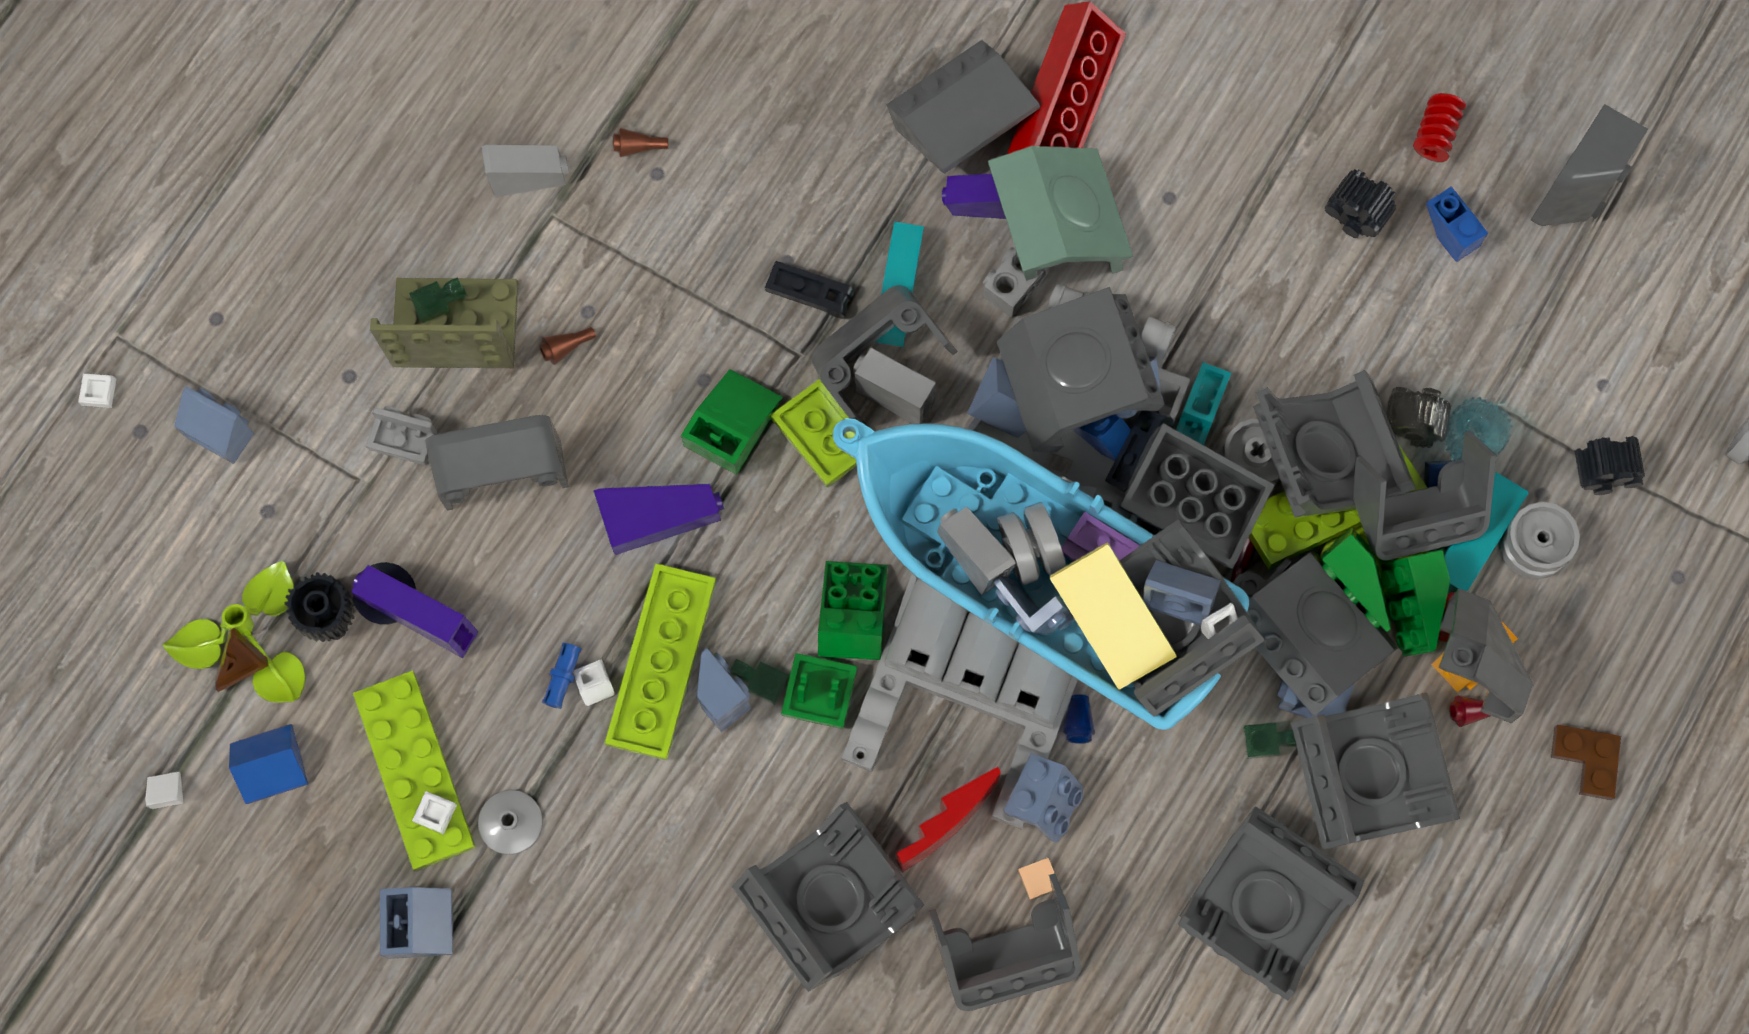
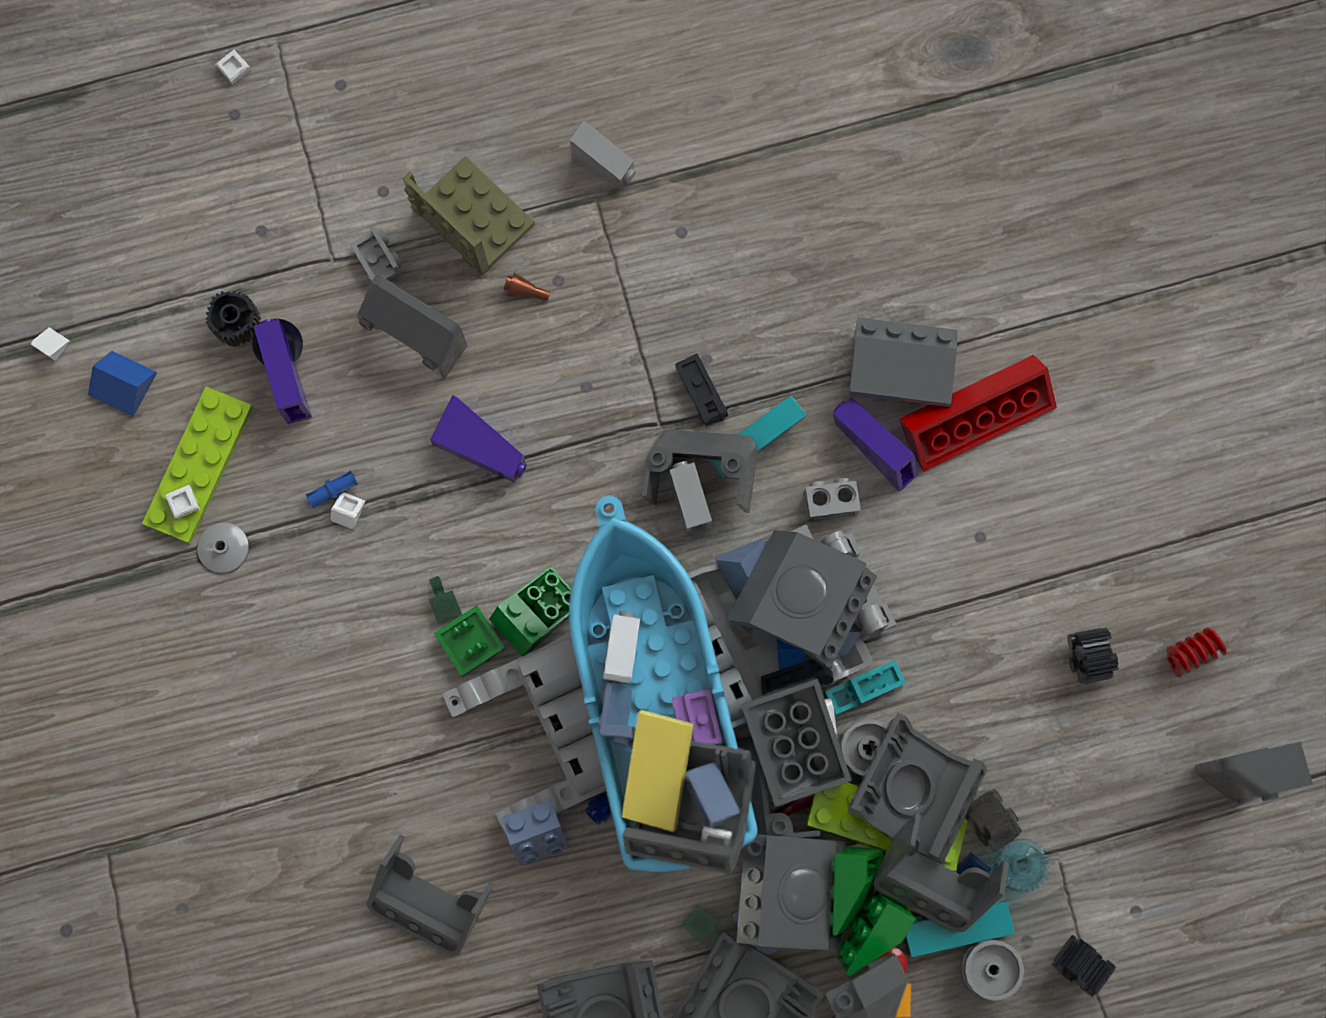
camera: 40 degrees right, 5 degrees up
(198, 641) = (151, 272): lime plant -> none
(212, 424) = (275, 149): sand blue slope -> none
(238, 661) = (158, 307): reddish brown tile -> none
(415, 922) = (112, 556): sand blue slope -> none
(433, 300) = (471, 190): clear green plate -> none
(631, 142) = (682, 198): copper cone -> none
(660, 662) = (395, 535): lime plate -> none
(718, 694) = (407, 586): sand blue slope -> none
(730, 421) = (576, 427): green slope -> none
(809, 427) = (622, 477): lime plate -> none
(829, 899) = (352, 769): dark grey panel -> none
(956, 811) = (474, 791): red slope -> none
(1031, 543) = (653, 677): light grey wheel -> none
(1036, 878) = (487, 873): light nougat tile -> none
(1059, 208) = (896, 483): sand green panel -> none
(1455, 224) = (1141, 722): blue slope -> none

